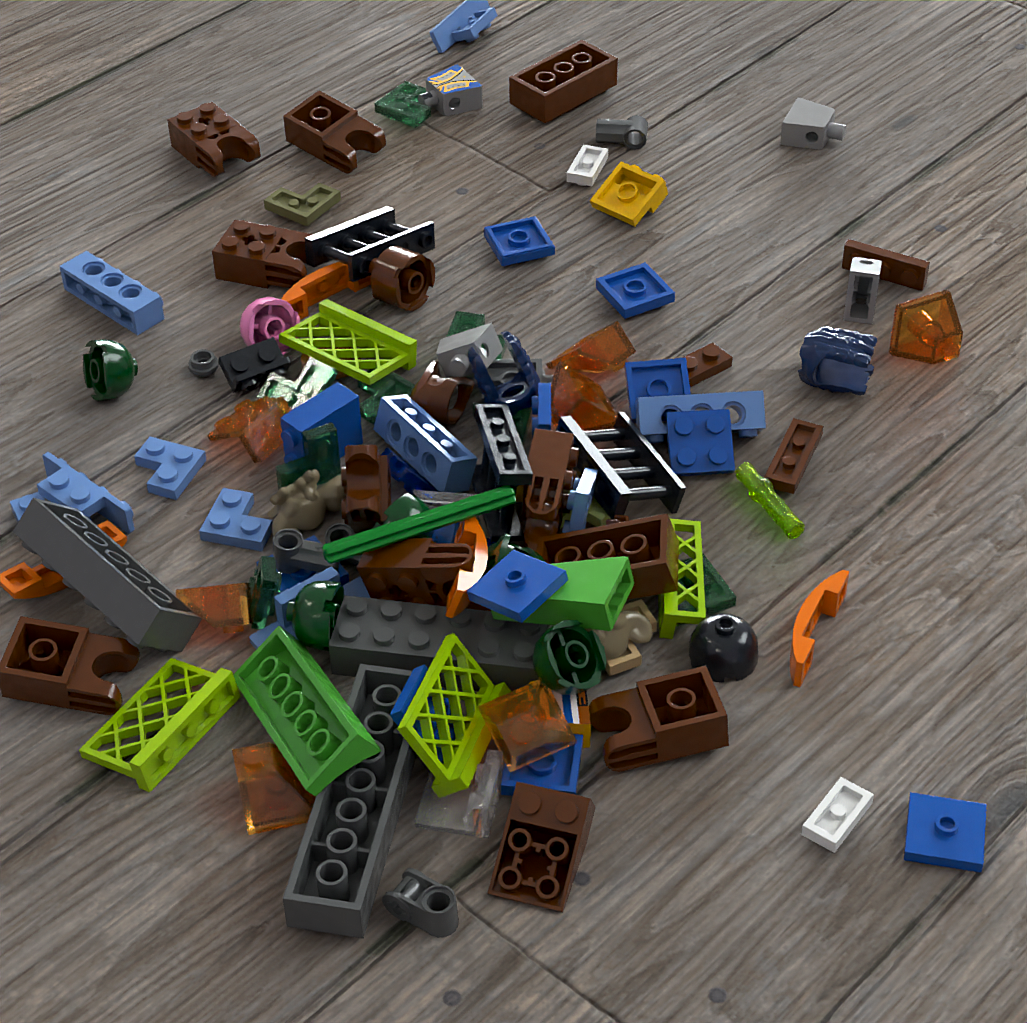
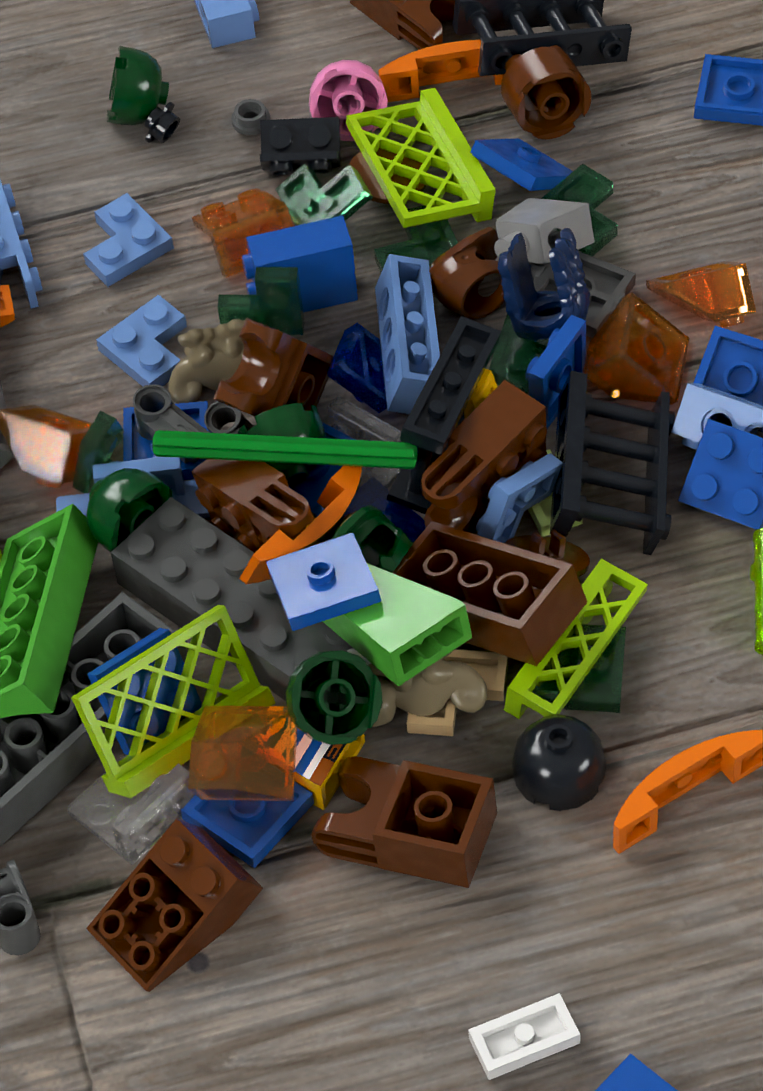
camera: 35 degrees right, 10 degrees up
(142, 387) = (161, 123): none -> black plate
(418, 321) = (521, 163): none -> blue plate

